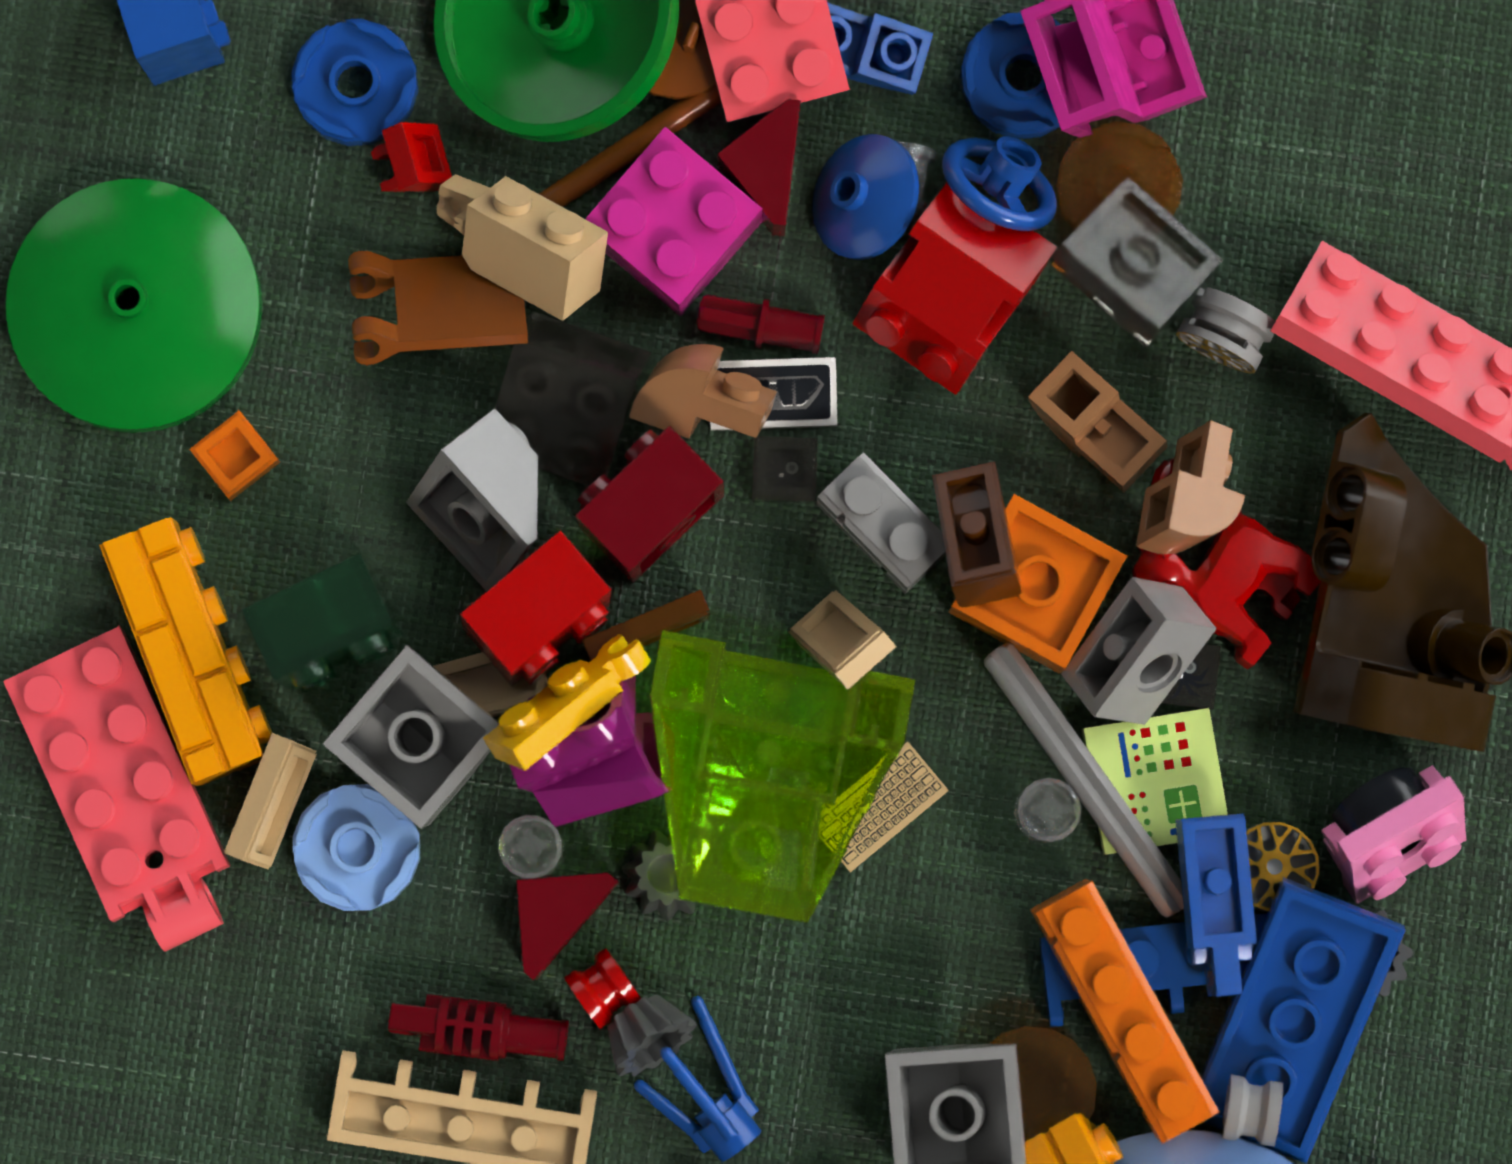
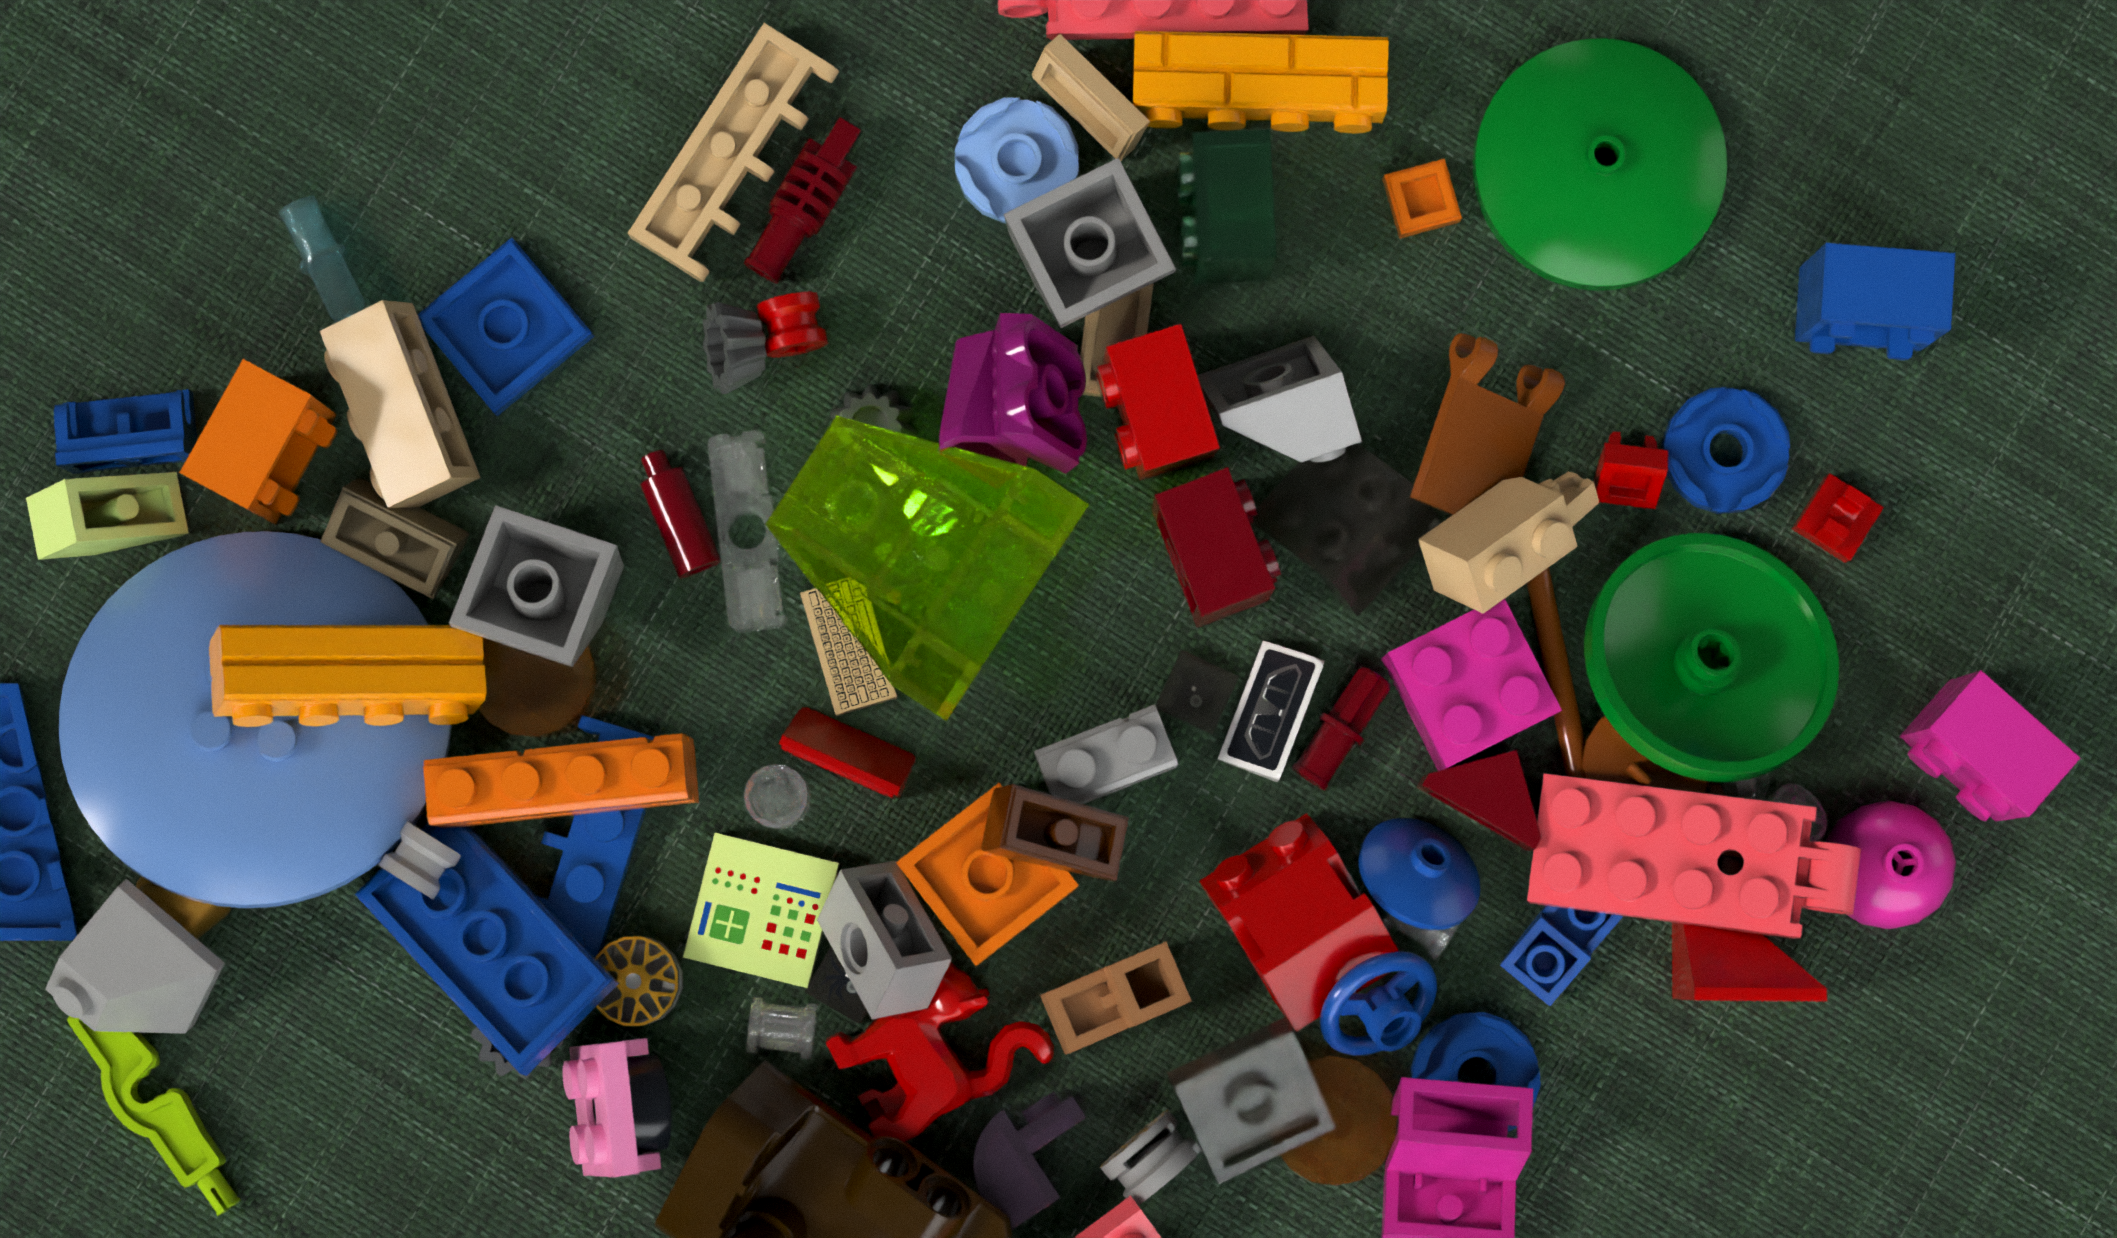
camera: 115 degrees right, 0 degrees up
(520, 840) = (949, 302): clear wheel -> none
(554, 912) = (880, 308): dark red slope -> none
(566, 703) = (1059, 389): yellow plate -> none
(648, 626) = (1101, 501): reddish brown tile -> none
(691, 388) = (1303, 633): medium nougat brick -> none
(724, 1124) = (625, 379): blue plant -> none
(778, 972) = (748, 574): none -> clear piece
(827, 1017) = (678, 516): none -> dark red cylinder
(841, 639) = (1013, 671): tan tile -> none
(978, 763) = (848, 752): none -> red slope
(1086, 778) = (788, 844): light grey axle -> none
(1192, 499) = (1000, 1048): medium nougat brick -> none
(1217, 898) = (627, 913): blue hinge -> none
(1255, 714) = (782, 1027): none -> clear bush
(1286, 458) = (1006, 1162): none -> clear purple brick

